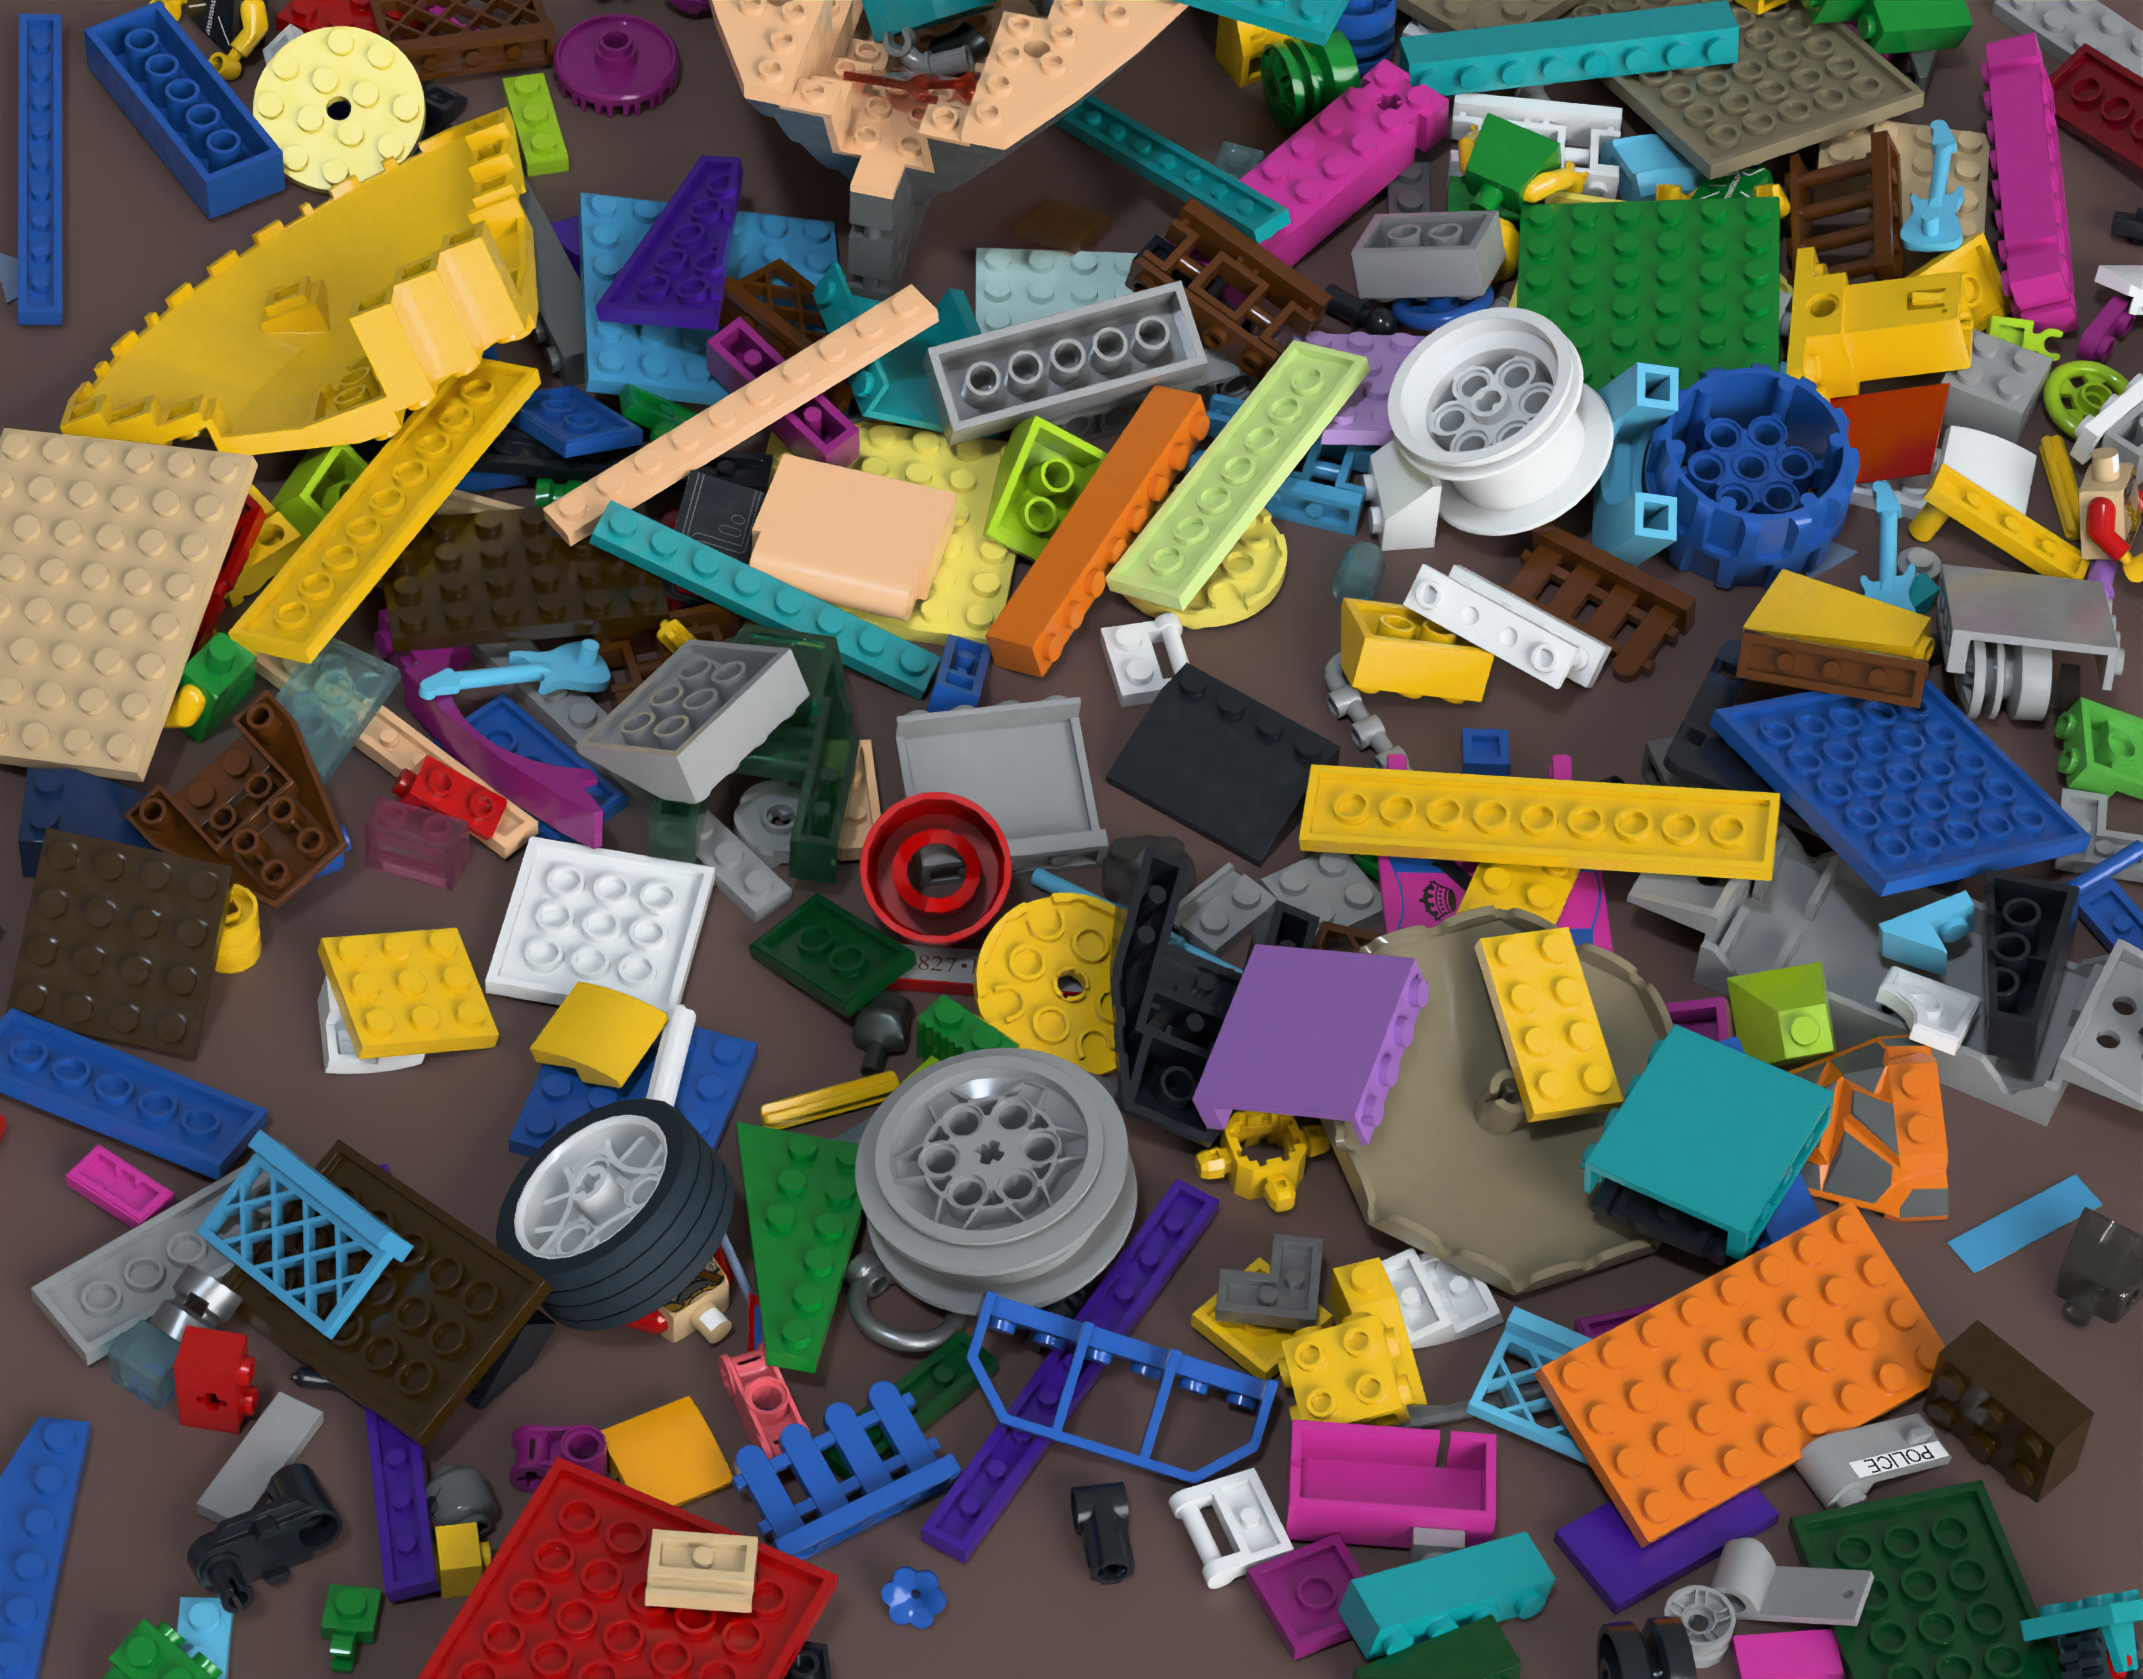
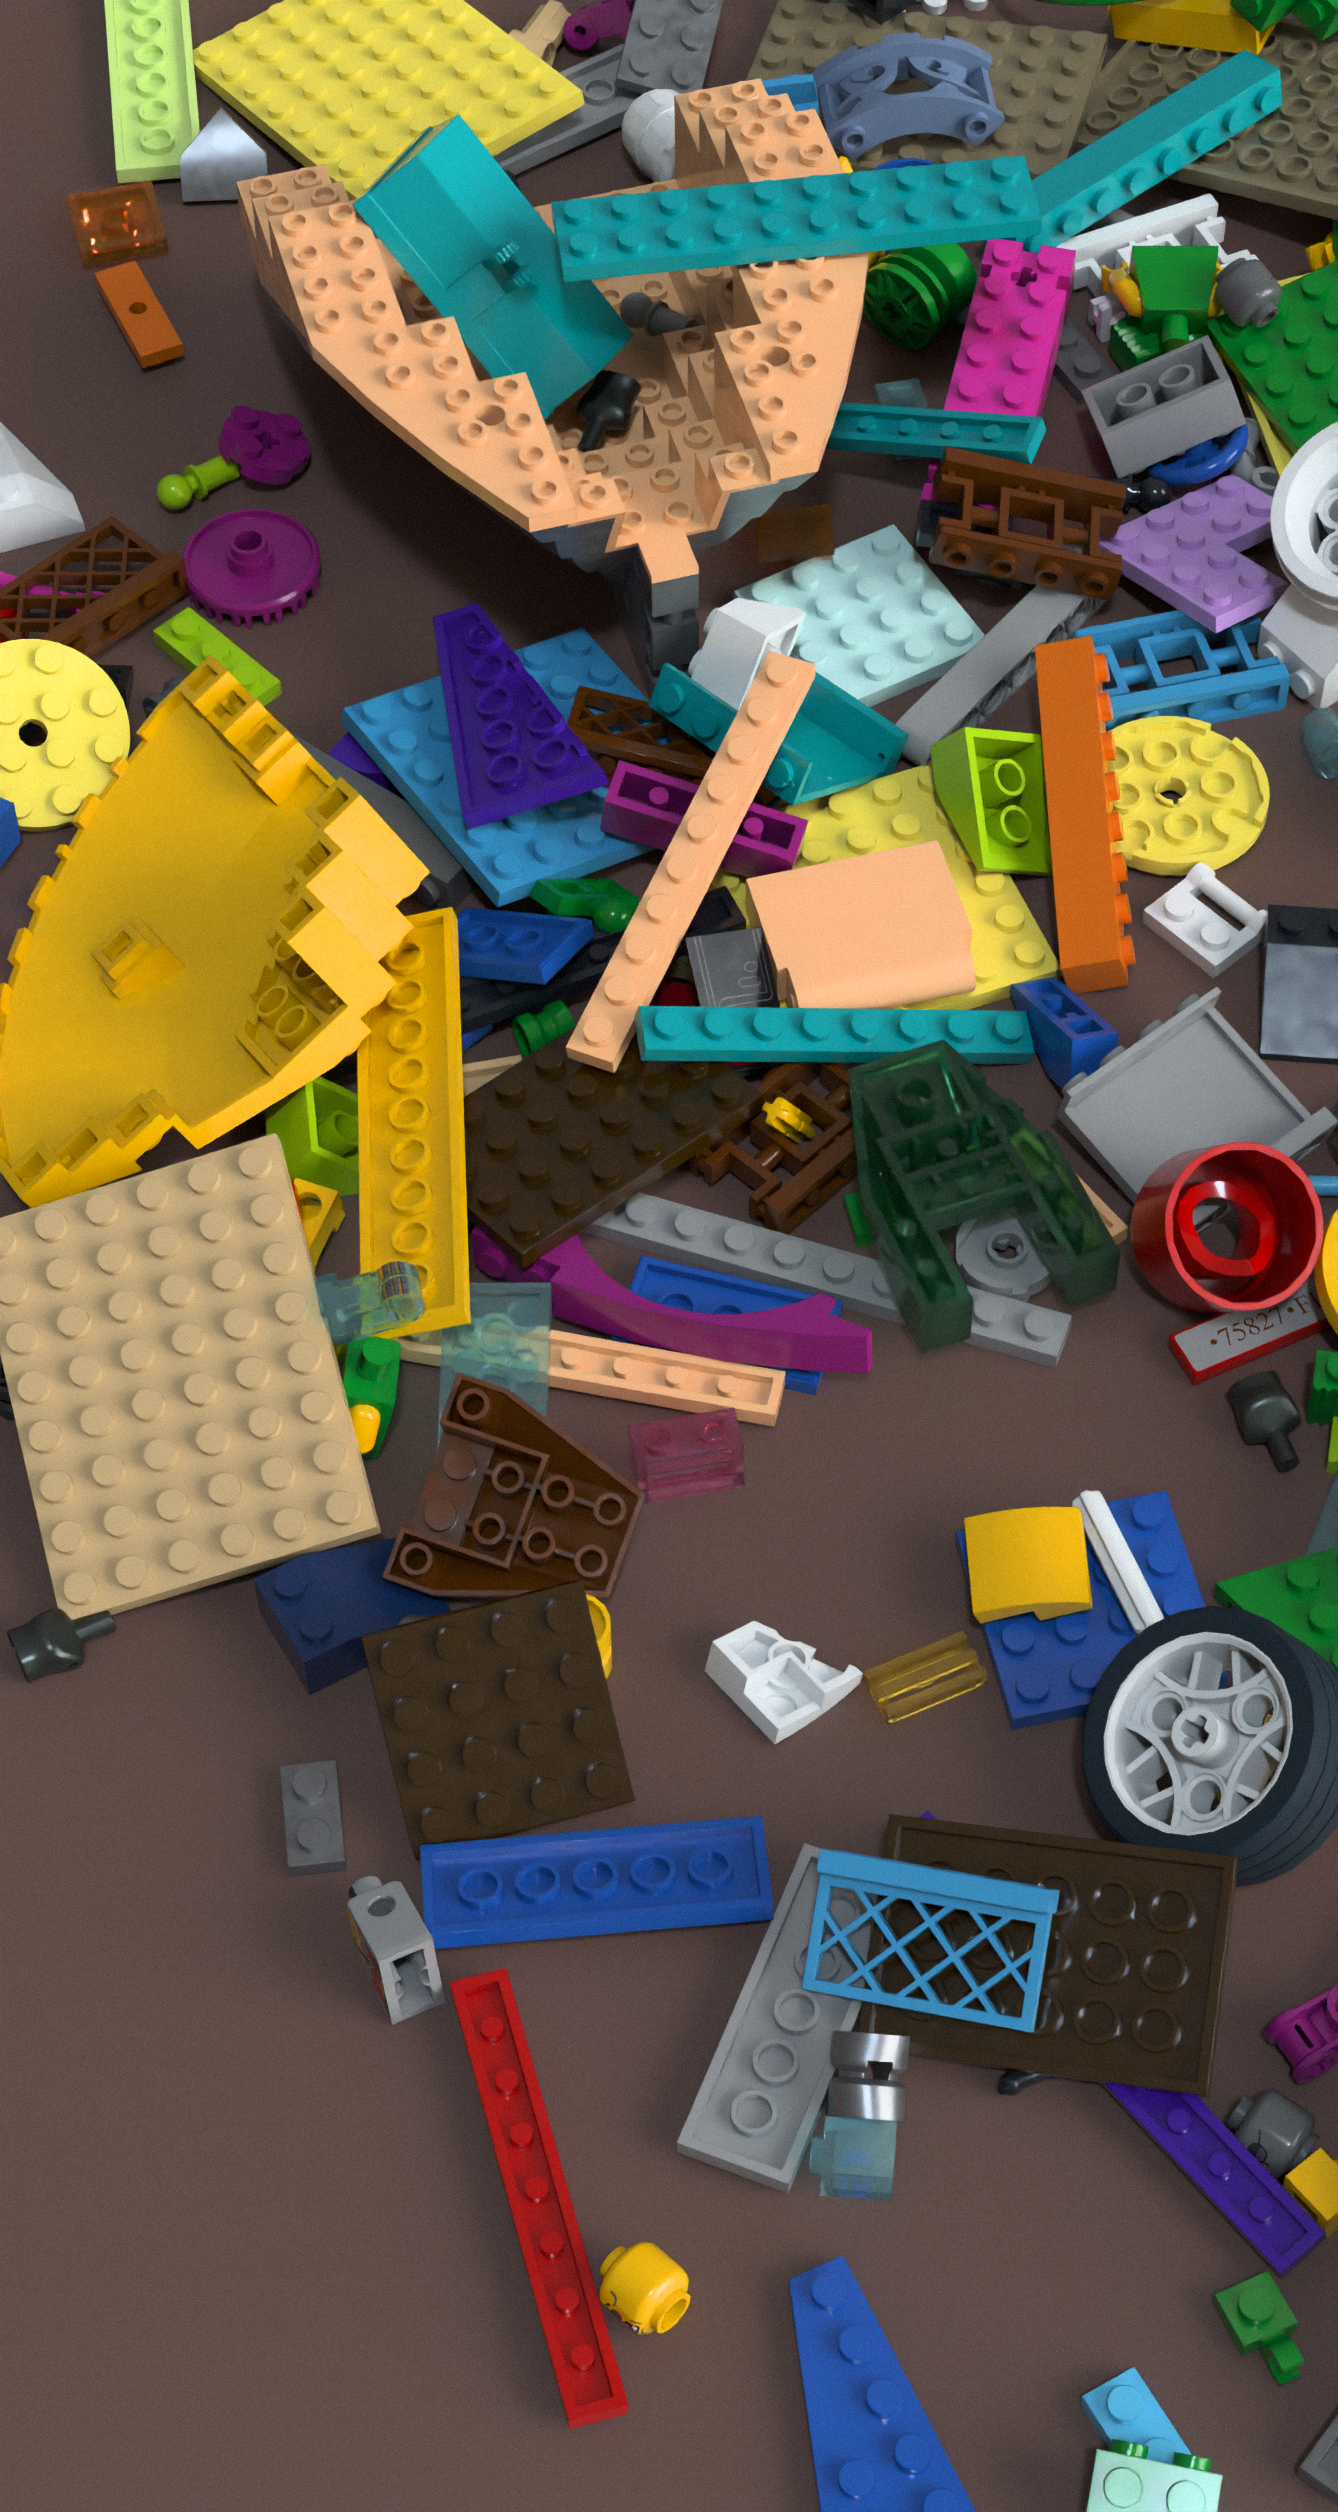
camera: 25 degrees left, 5 degrees up
(118, 1187) = (676, 1982): dark pink plate -> none
(214, 1380) = (949, 2140): red brick -> none
(239, 610) = (370, 1301): none -> clear light blue leg
(266, 1538) = (1147, 2248): black piece -> none
(269, 1446) = (1039, 2201): light grey tile -> none
(407, 993) = (800, 1618): yellow plate -> none
(450, 794) = (689, 1388): red bracket -> none
(473, 1076) = (916, 1660): none -> clear yellow tile
(566, 667) = (690, 1201): medium azure piece -> none
(599, 922) = (924, 1449): white plate -> none
(697, 717) = (894, 1188): light grey slope -> none
(828, 1101) = (1274, 1513): yellow axle -> none
(832, 955) = (1167, 1363): dark green tile -> none
(916, 82) = (646, 444): clear red flag -> none
(933, 270) = (738, 644): none -> white slope
(941, 63) = (605, 427): light grey piece -> none
(1064, 362) = (944, 663): light grey brick -> none
(1237, 475) = (1175, 699): yellowish green plate -> none
(1556, 191) = (1248, 293): none -> dark grey head
(1648, 162) = (1275, 236): medium azure slope -> none

